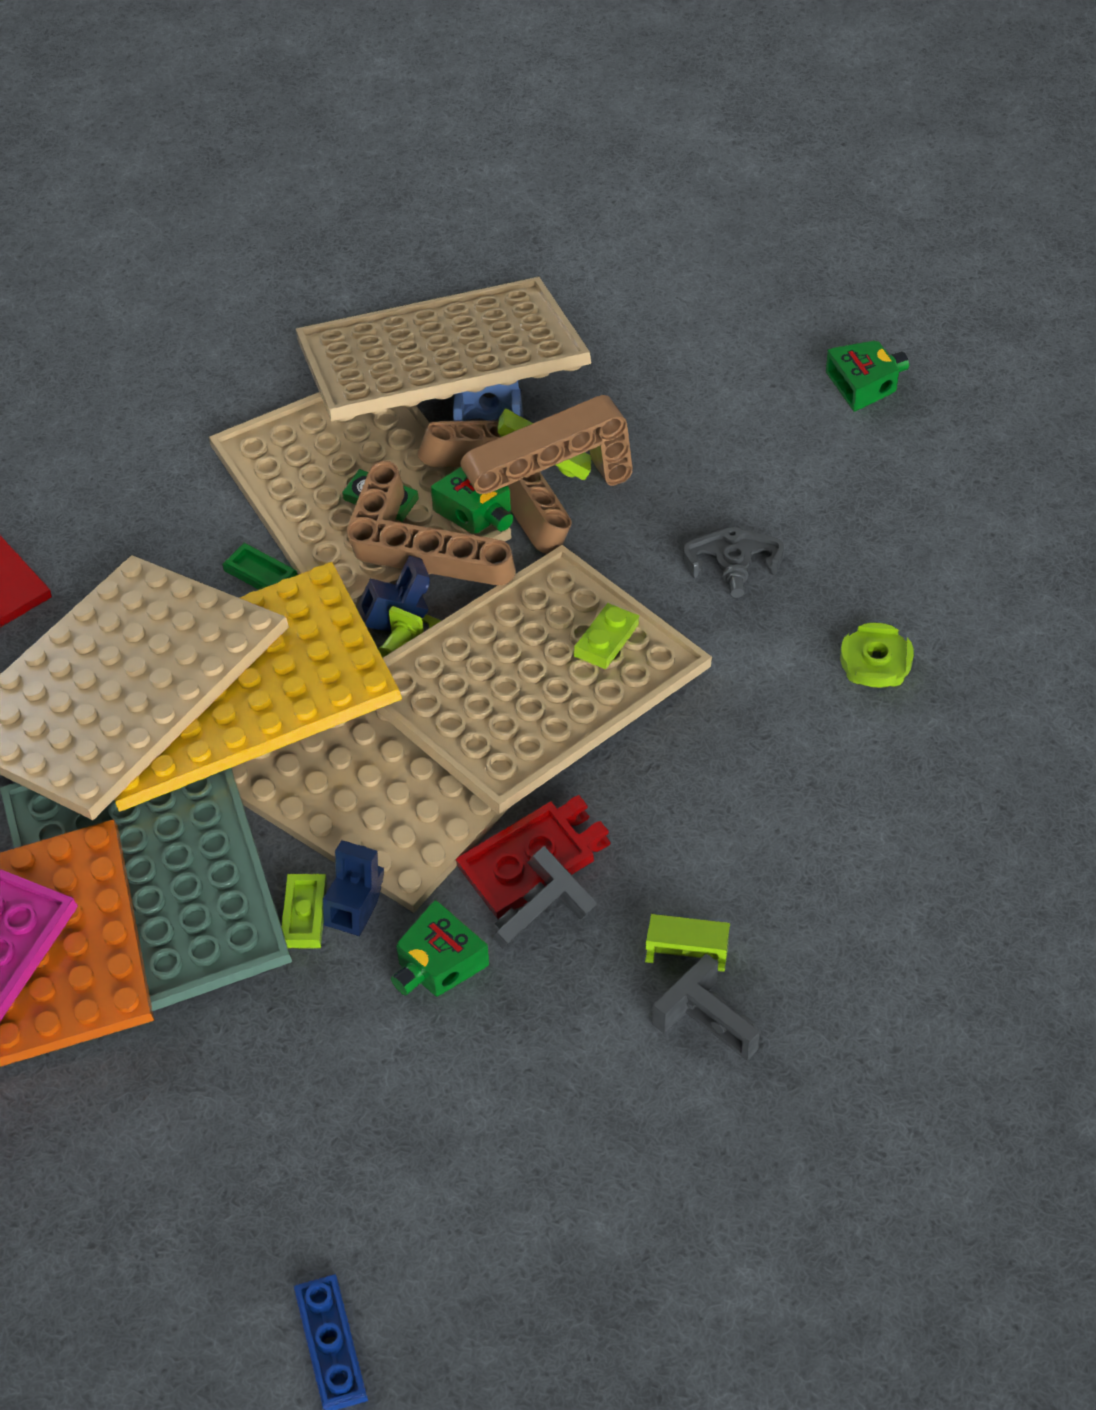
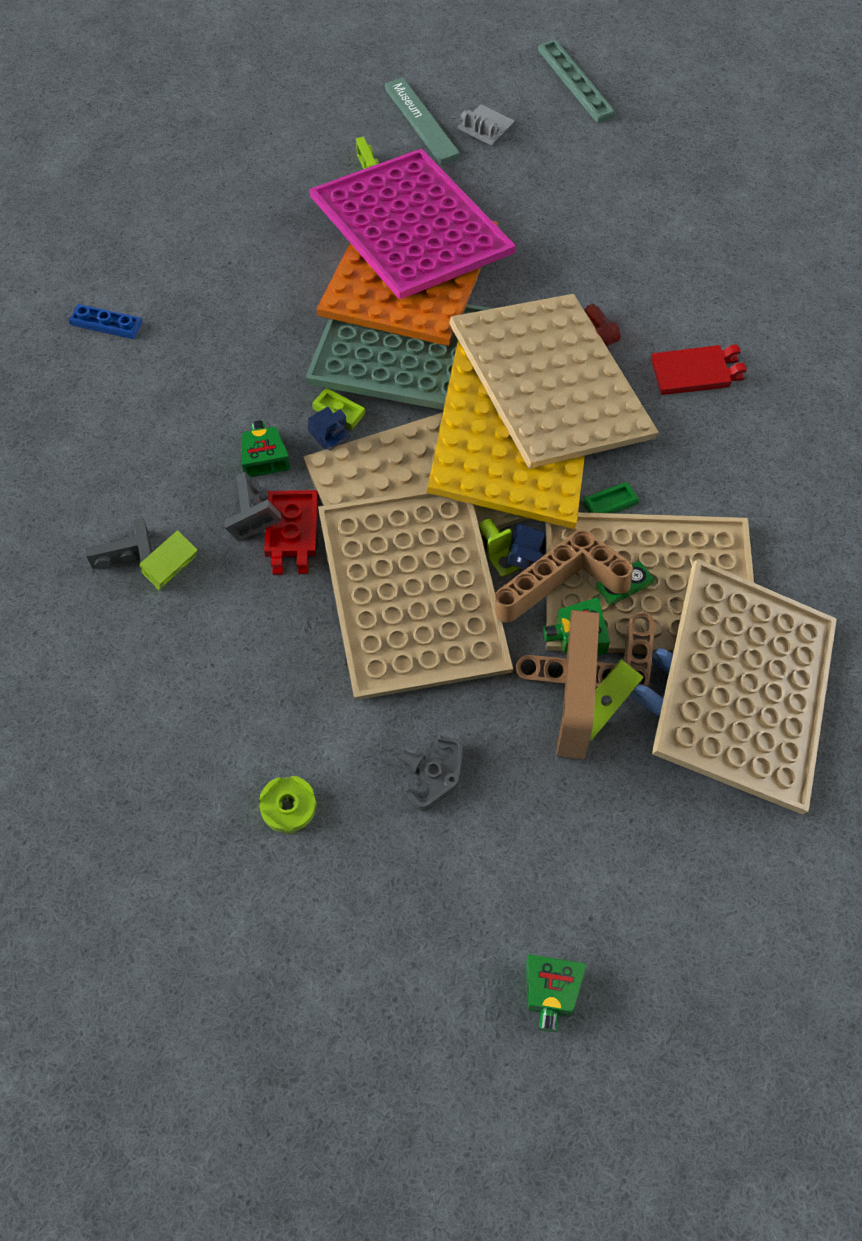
camera: 120 degrees right, 10 degrees up
(606, 636) = (409, 640): lime plate -> none

